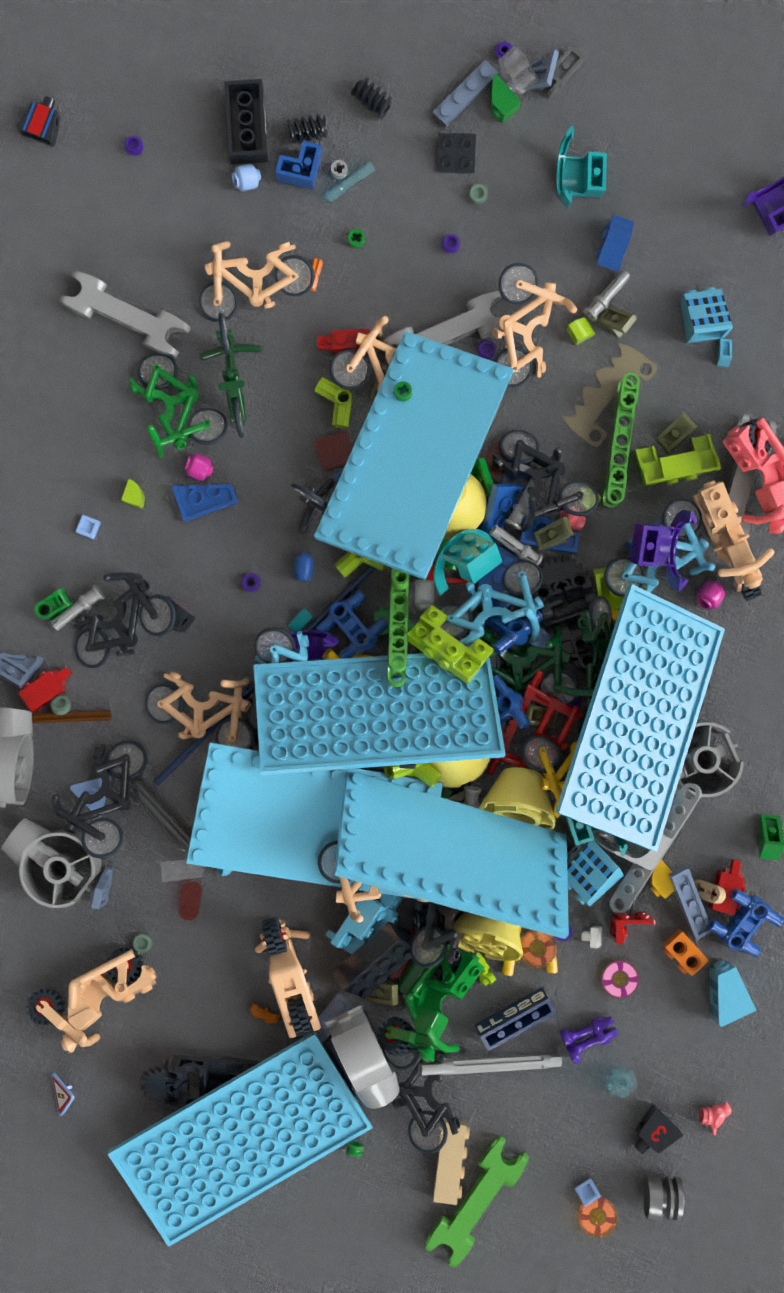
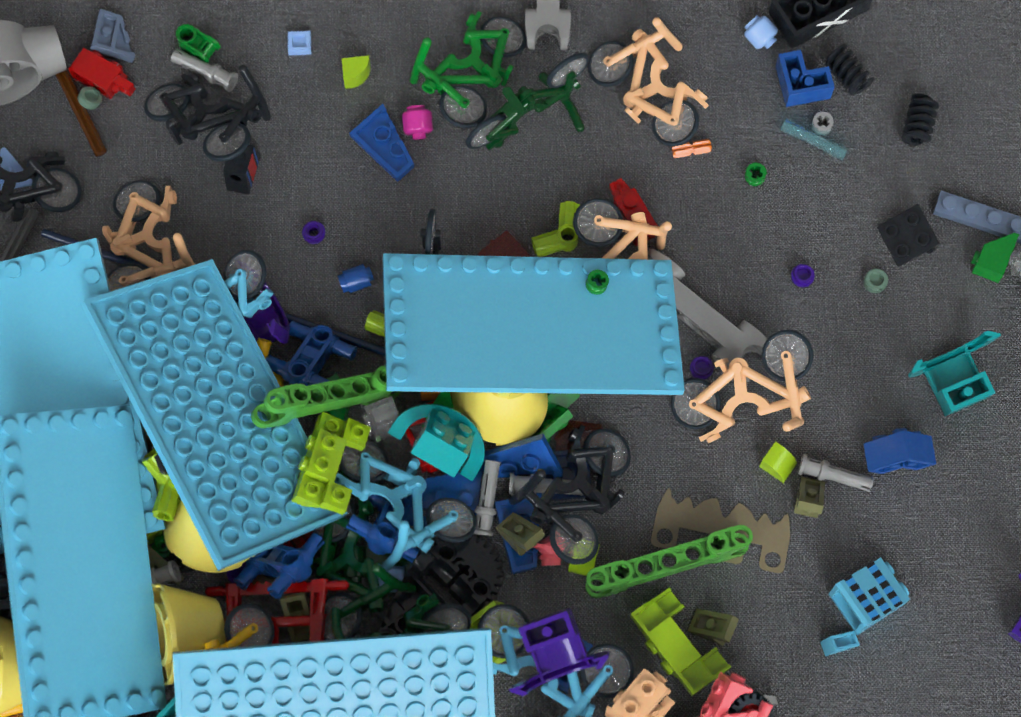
camera: 70 degrees right, 15 degrees down
(300, 620) = (295, 304): teal piece -> none

